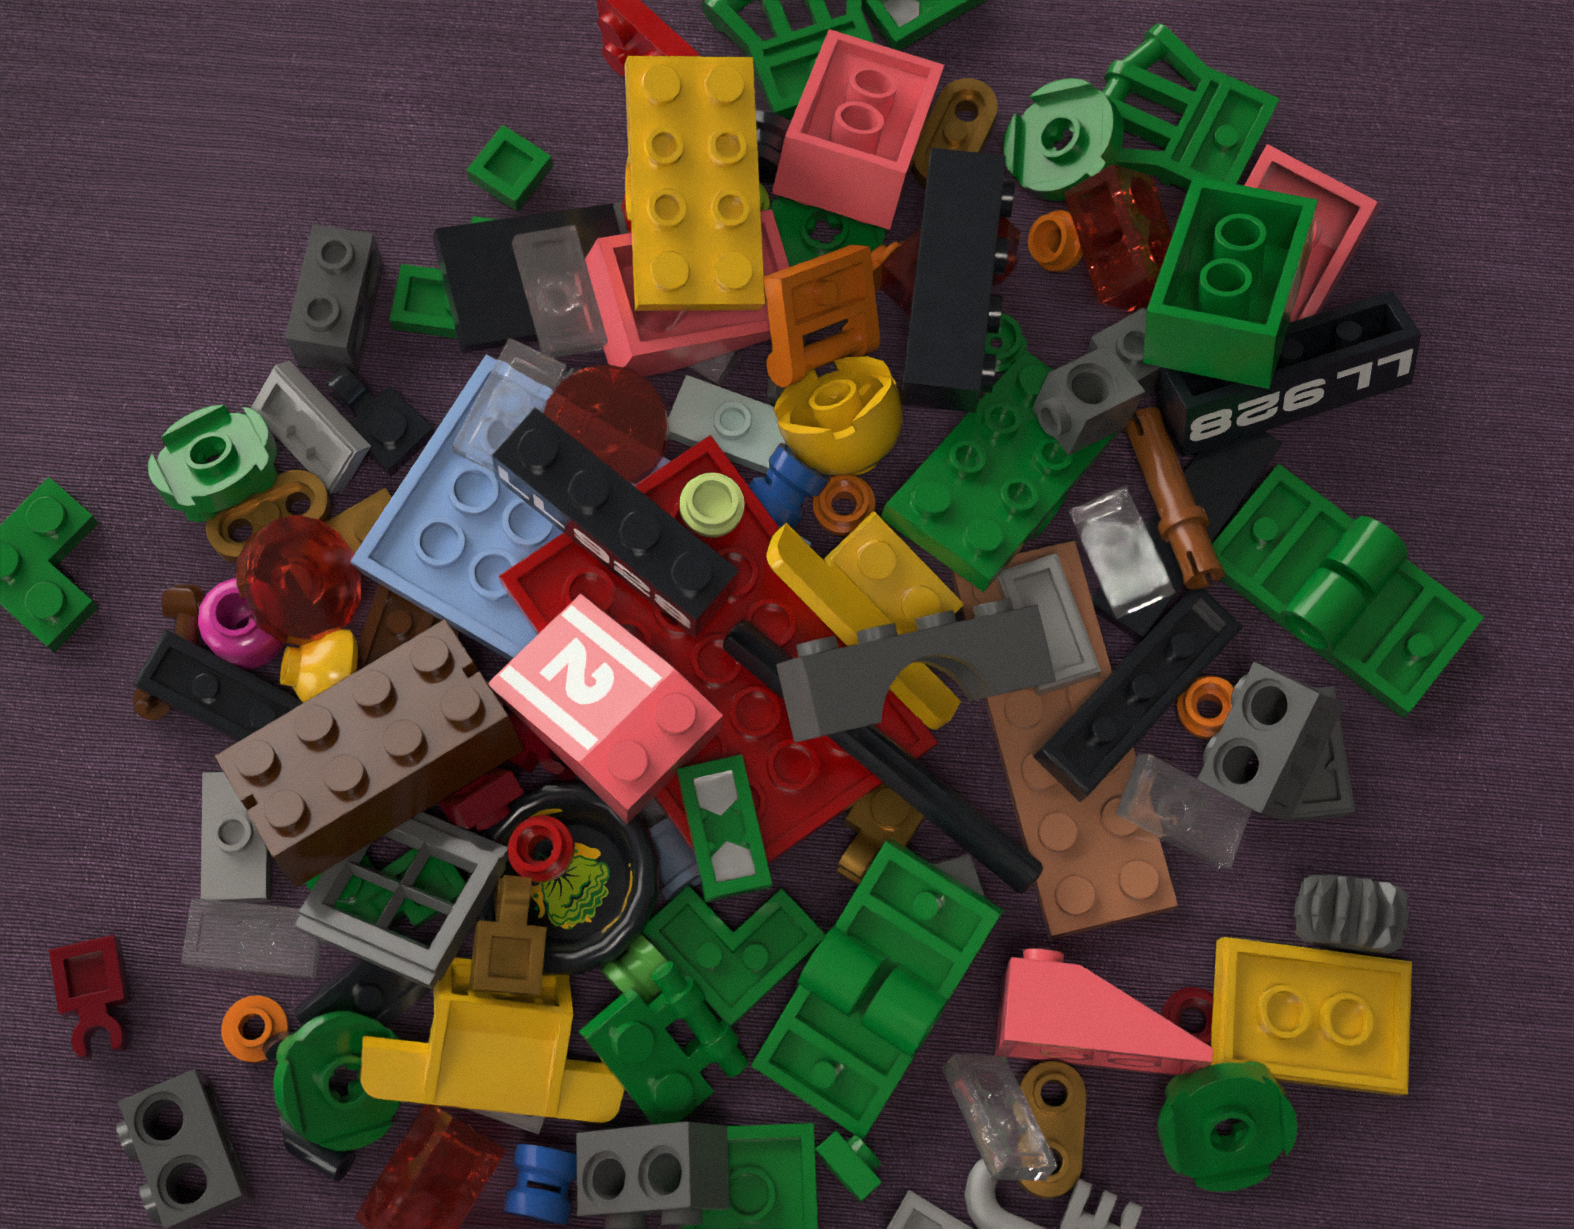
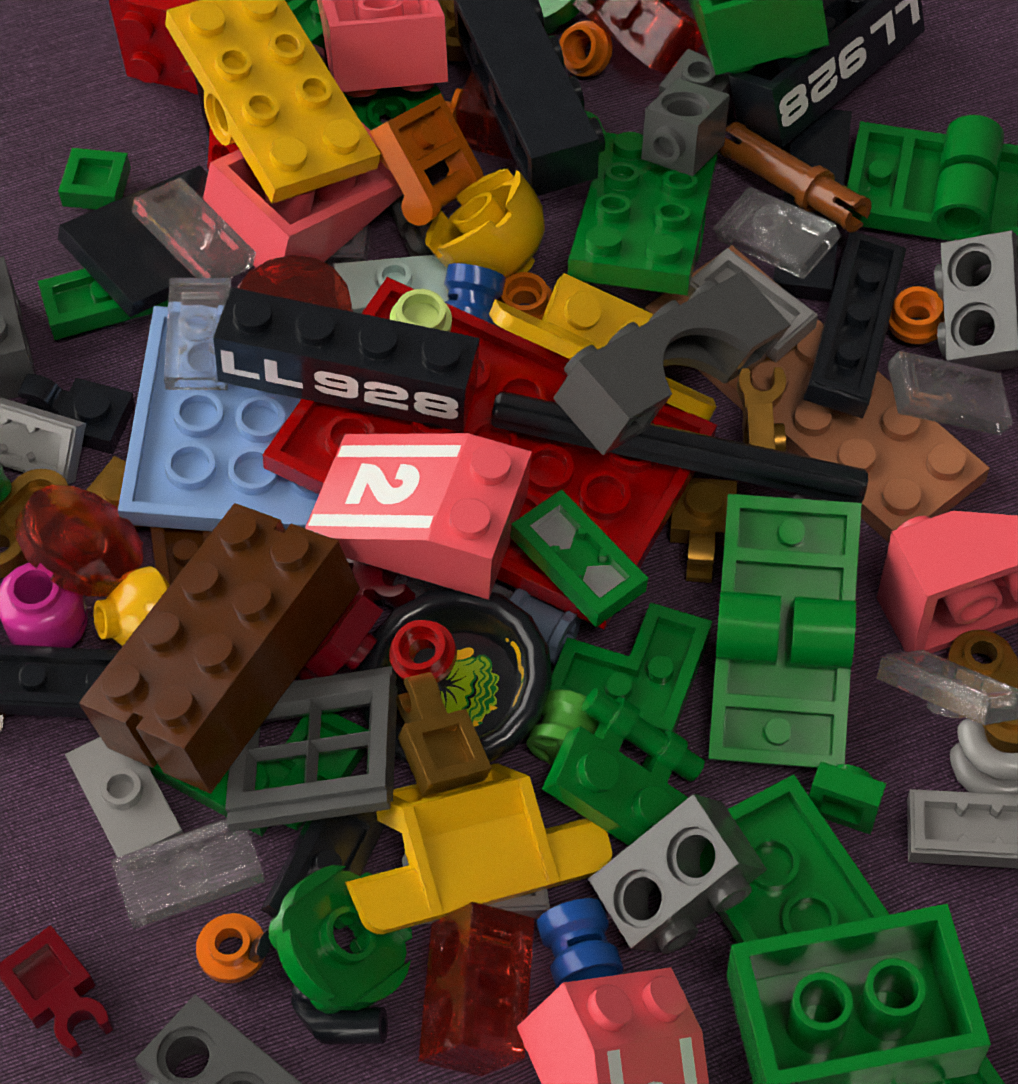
camera: 25 degrees left, 15 degrees down
(978, 771) = (758, 406): none -> pearl gold plate

